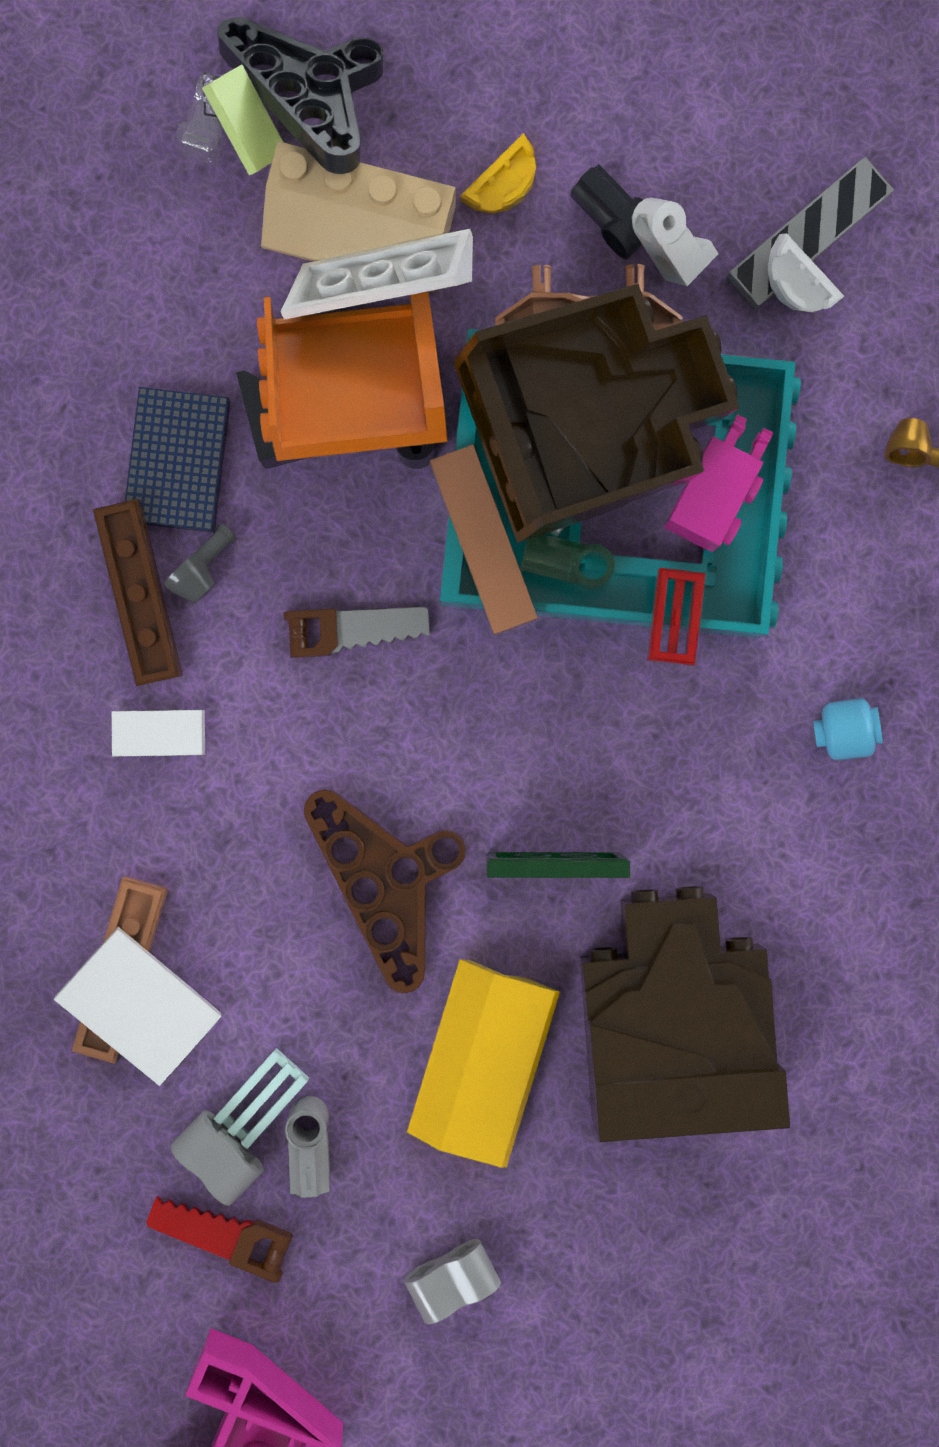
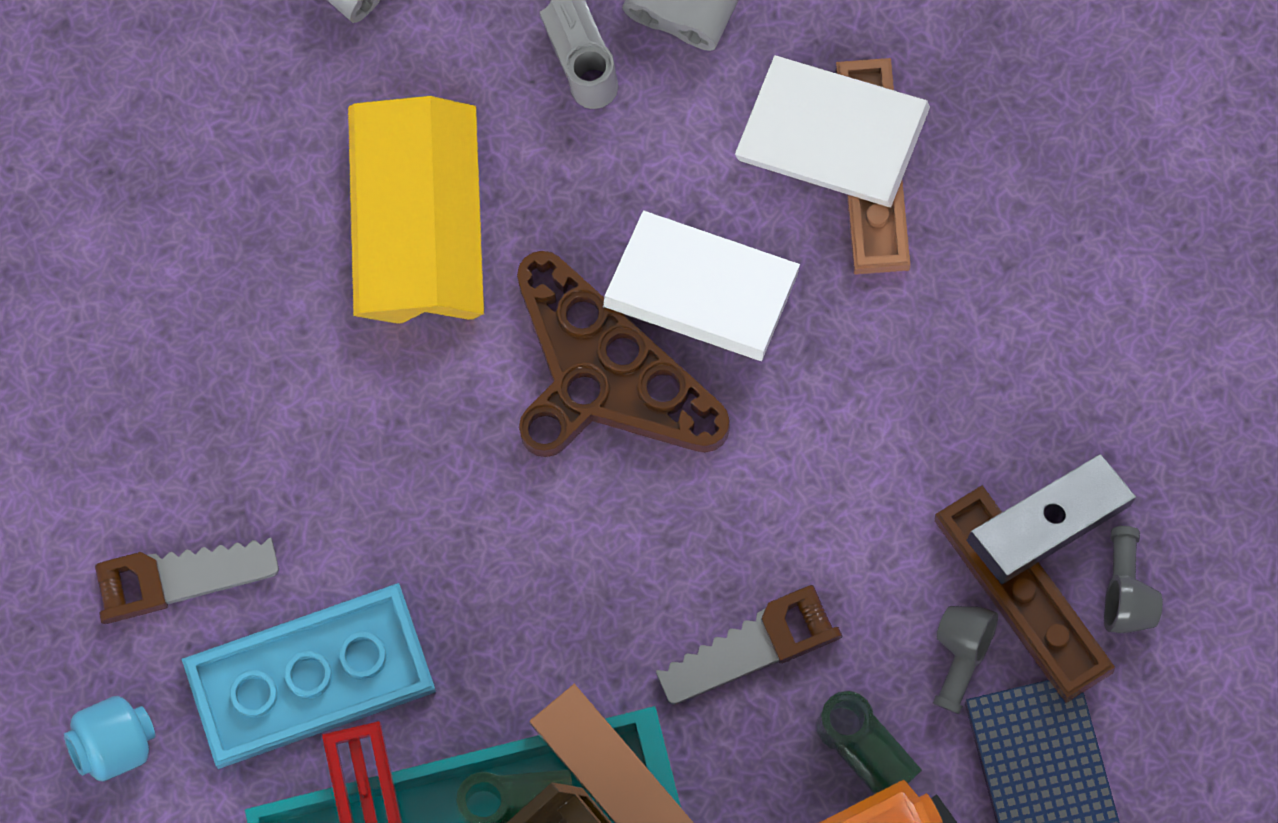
camera: 165 degrees right, 15 degrees down
(55, 553) = (1129, 602): none -> dark grey bar
(75, 640) = (1071, 504): none -> tile
(158, 733) = (935, 442): white tile -> none
(235, 1127) = (671, 44): light aqua tile -> none
(285, 918) = (701, 285): none -> white tile
(296, 519) = (871, 750): none -> clear green piece
(557, 865) = (407, 450): dark green tile -> none
(680, 1026) = (202, 327): dark brown panel -> none
(685, 726) = (308, 675): none -> medium azure tile
(754, 836) = (181, 577): none -> light grey piece

